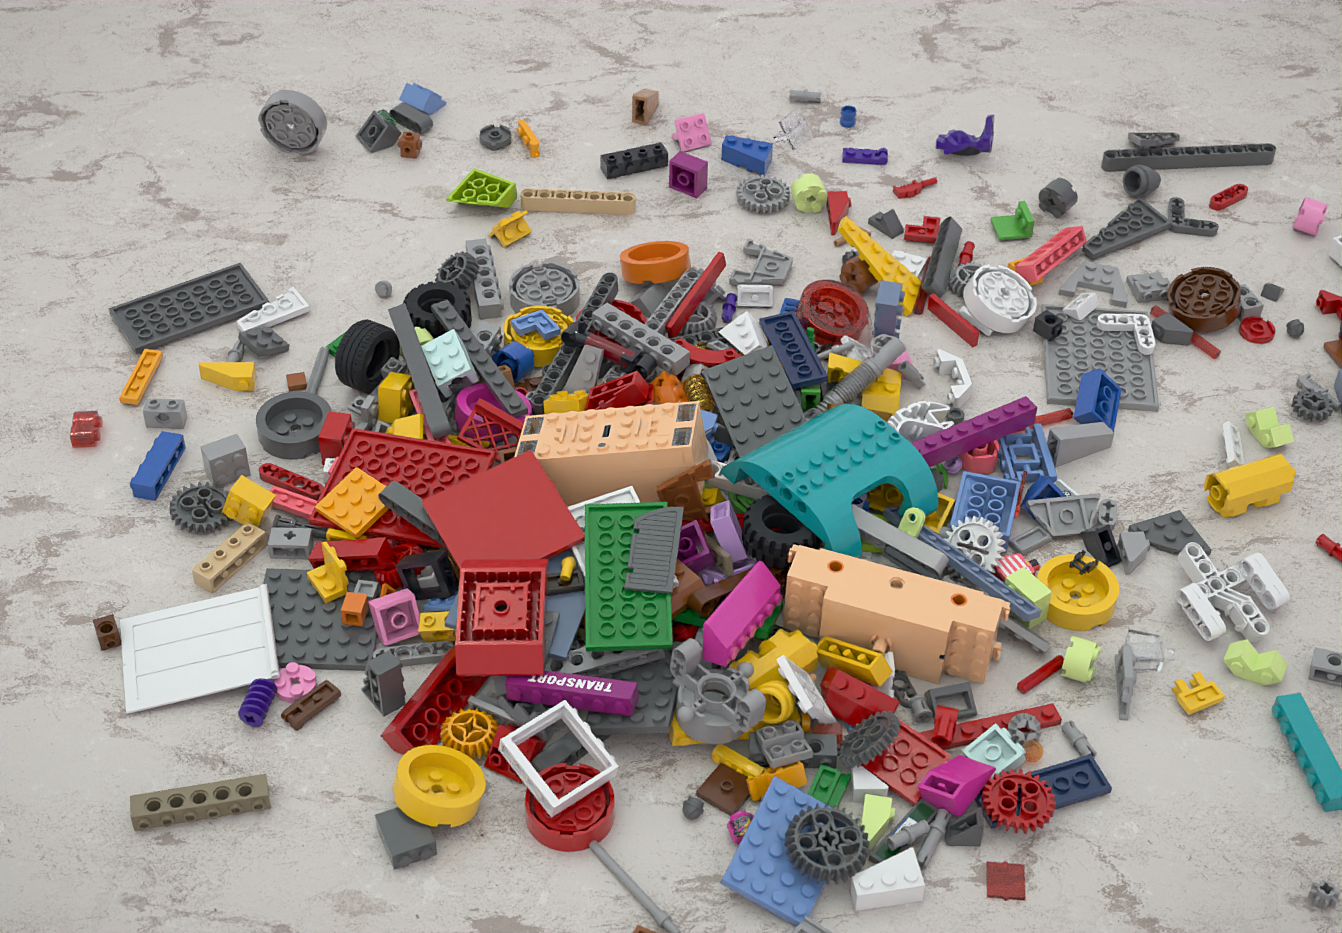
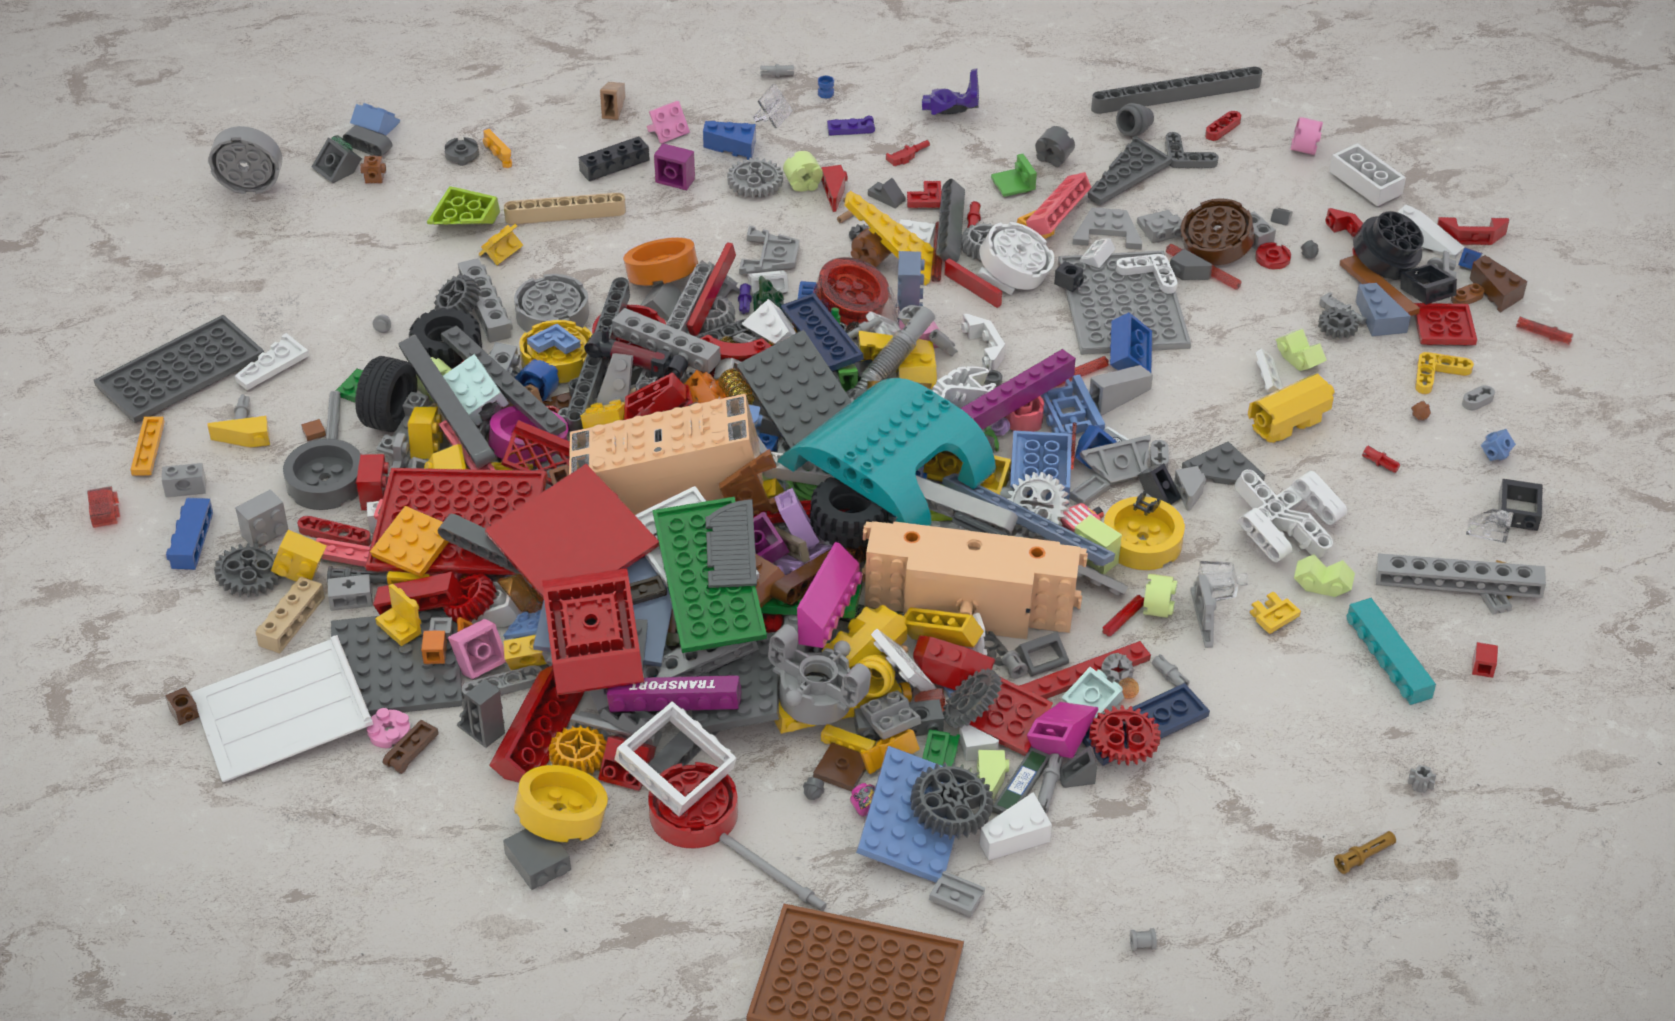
camera: 10 degrees left, 0 degrees up
(199, 802) = (322, 855): dark tan brick -> none
(257, 702) = (356, 751): dark purple piece -> none
(263, 341) = (269, 393): dark grey plate -> none
(442, 569) = (519, 595): black window -> none
(568, 565) = (646, 572): yellow arm -> none
(752, 305) = (766, 292): none -> dark green bracket
(907, 835) = (1025, 782): light grey pin -> none
(912, 527) = (975, 490): yellowish green plate -> none
(944, 722) = (1041, 672): red piece -> none
(1005, 880) = (1125, 811): clear red piece -> none
(1149, 139) = (1138, 75): dark grey plate -> none

